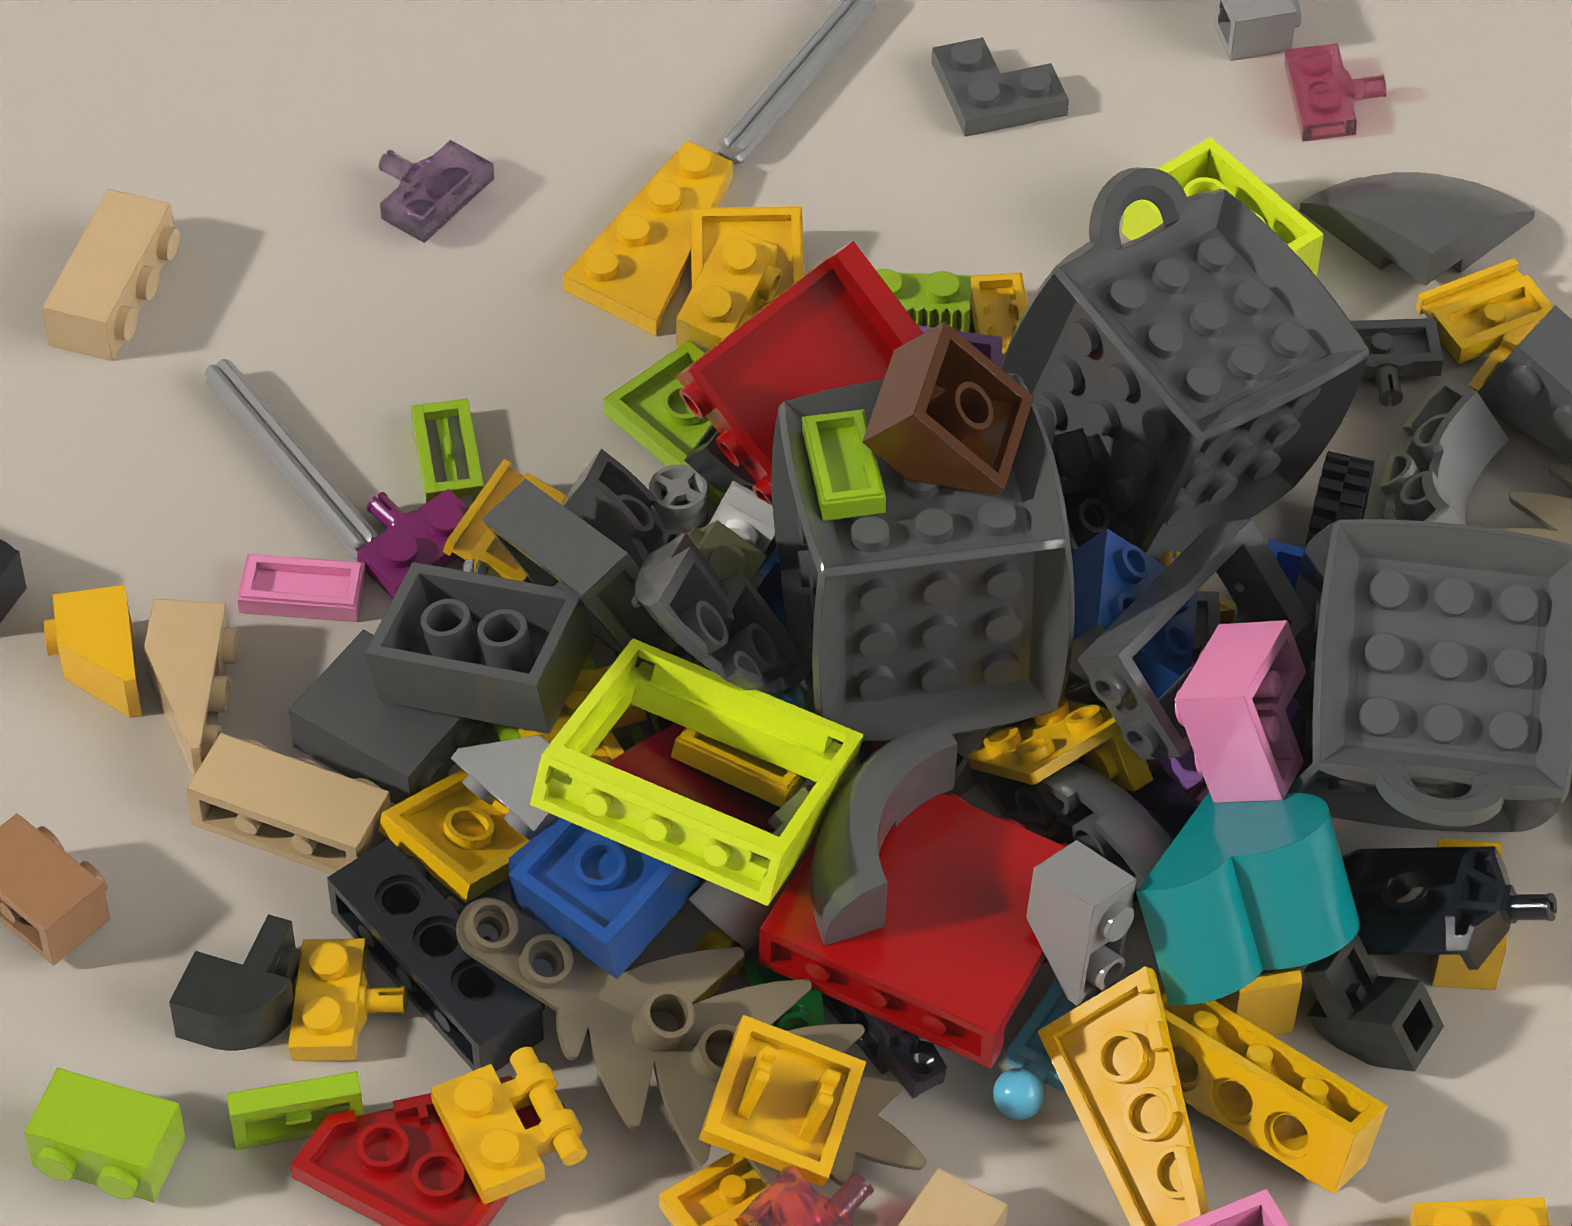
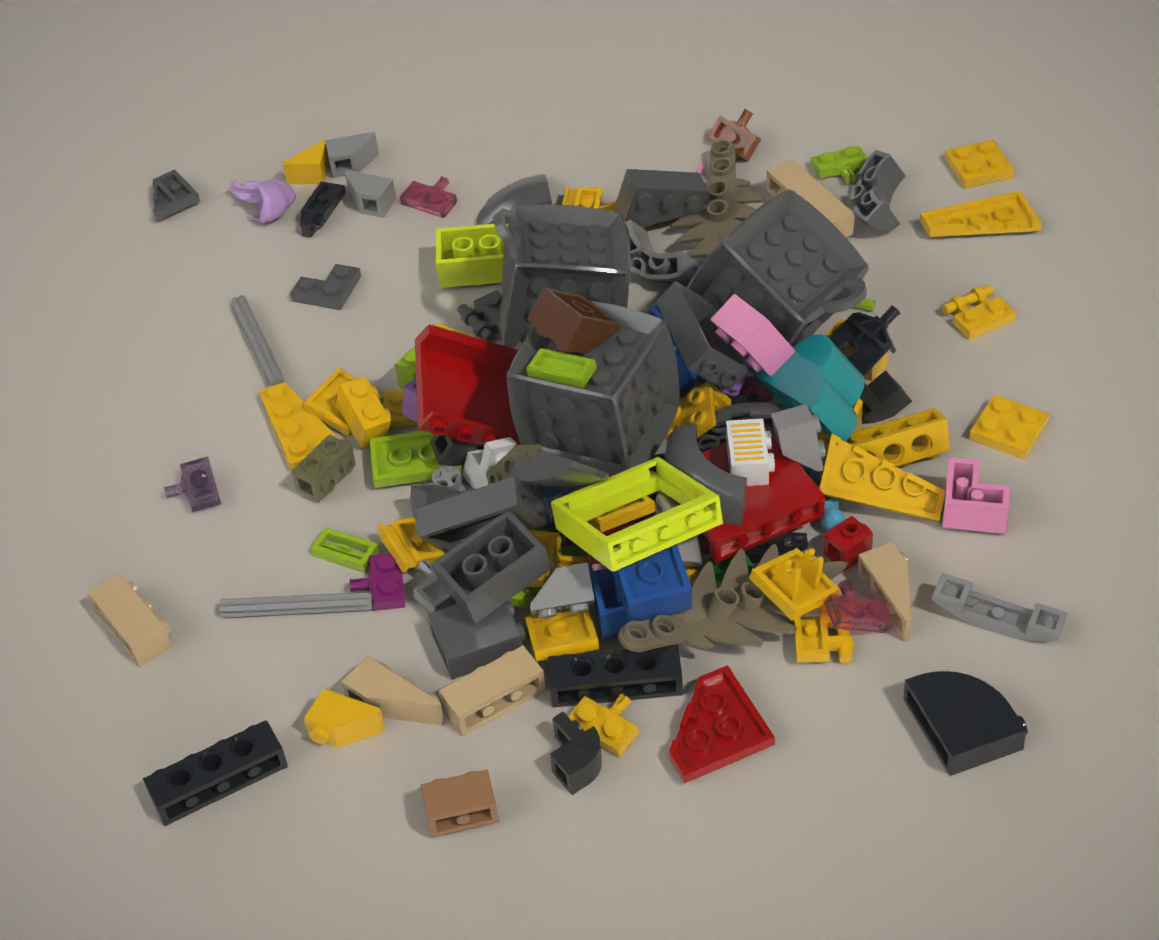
camera: 50 degrees left, 5 degrees down
(105, 1135) = (617, 837): lime brick -> none
(291, 1108) = (655, 762): lime tile -> none
(302, 587) = (370, 634): bright pink tile -> none
(490, 1135) = (724, 694): yellow plate -> none
(579, 320) = (324, 468): none -> olive brick
(978, 1142) = (847, 541): none -> red brick
(980, 859) = (748, 452): none -> white brick
(1341, 491) = (644, 286): black tyre -> none

